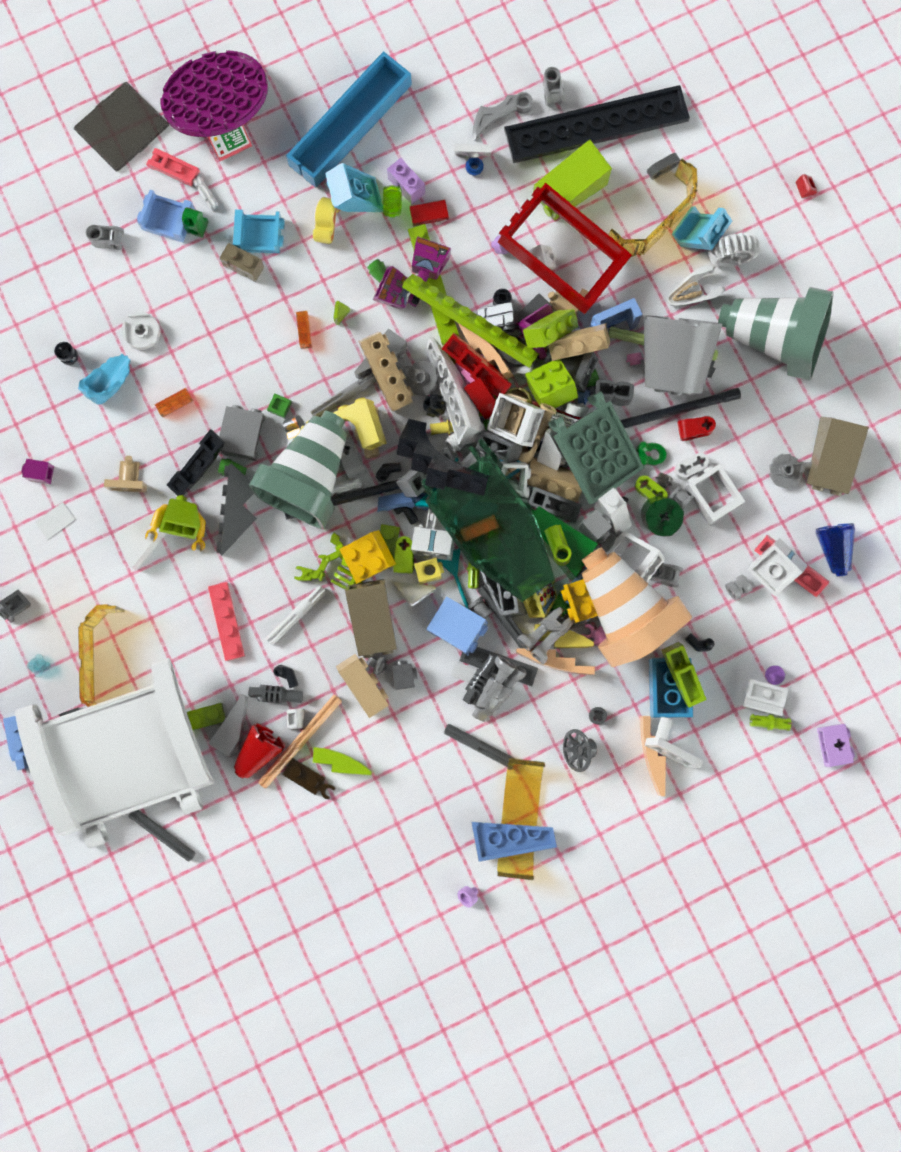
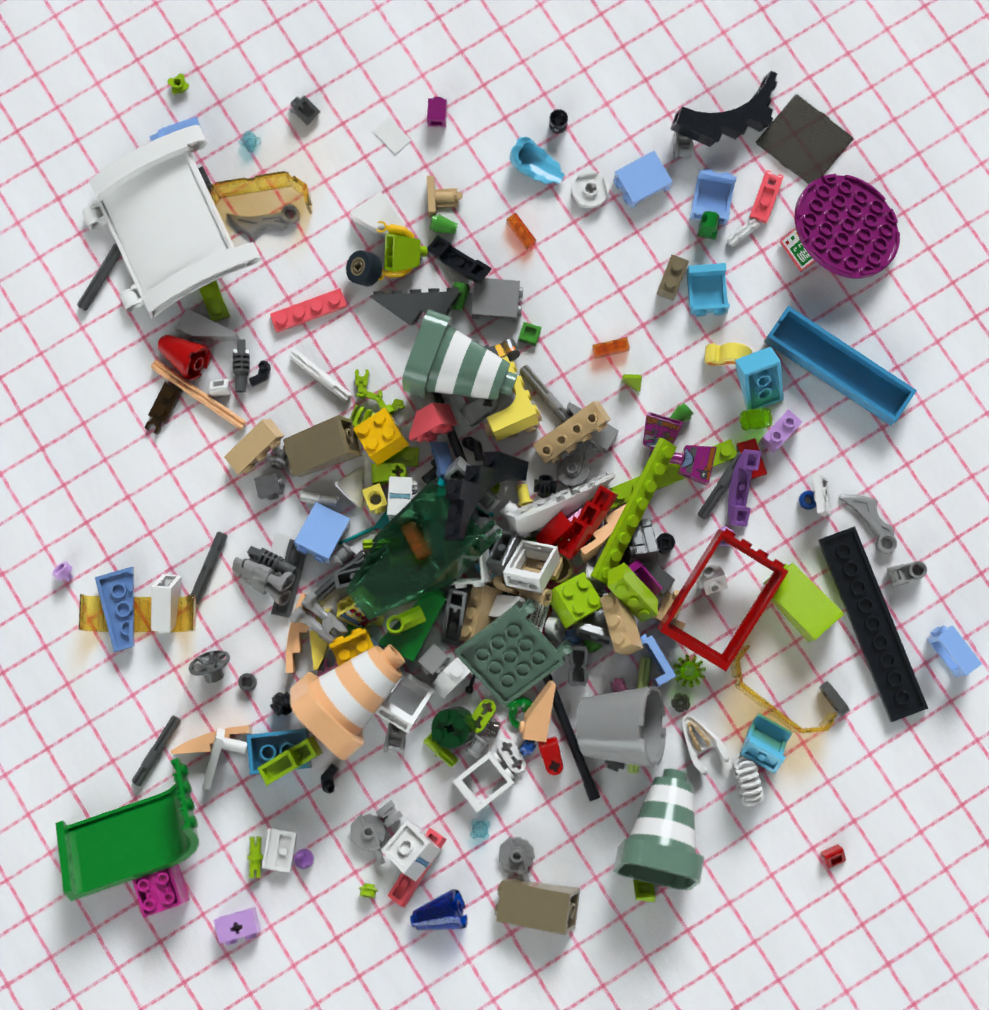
camera: 85 degrees right, 0 degrees up
(96, 206) = (709, 127): none -> black arch
(128, 669) = (254, 224): none -> light grey piece
(138, 279) = (642, 179): none -> light blue panel
(156, 478) = (442, 225): none -> bright green cone
(198, 556) = (363, 268): none -> black wheel
(340, 762) = (181, 434): lime slope -> none
(358, 505) = (432, 421): none -> coral slope
(420, 632) = (325, 500): none -> white axle
(452, 241) = (719, 489): none -> dark grey axle
(454, 224) = (740, 485): none -> medium lavender slope
(512, 790) = (165, 603): none -> white slope
(623, 681) = (281, 704): none -> black gear
(626, 286) = (696, 671): none -> clear neon green gear
(630, 53) = (953, 650): none -> light blue window
(658, 301) = (680, 697): none -> clear smoke plate
(658, 435) = (537, 717): none -> light nougat slope
(658, 813) = (155, 752): none -> dark grey axle
(682, 533) = (448, 757): none -> lime axle
(684, 449) = (527, 747): none -> blue plate
(748, 841) = (129, 840): none -> green panel
(754, 506) = (481, 834): none -> clear light blue plate
(756, 610) = (368, 833): none -> light grey piece
(797, 817) = (161, 890): none -> dark pink brick
(809, 615) = (368, 890): none -> lime plate
(827, 357) = (644, 891): none -> lime slope

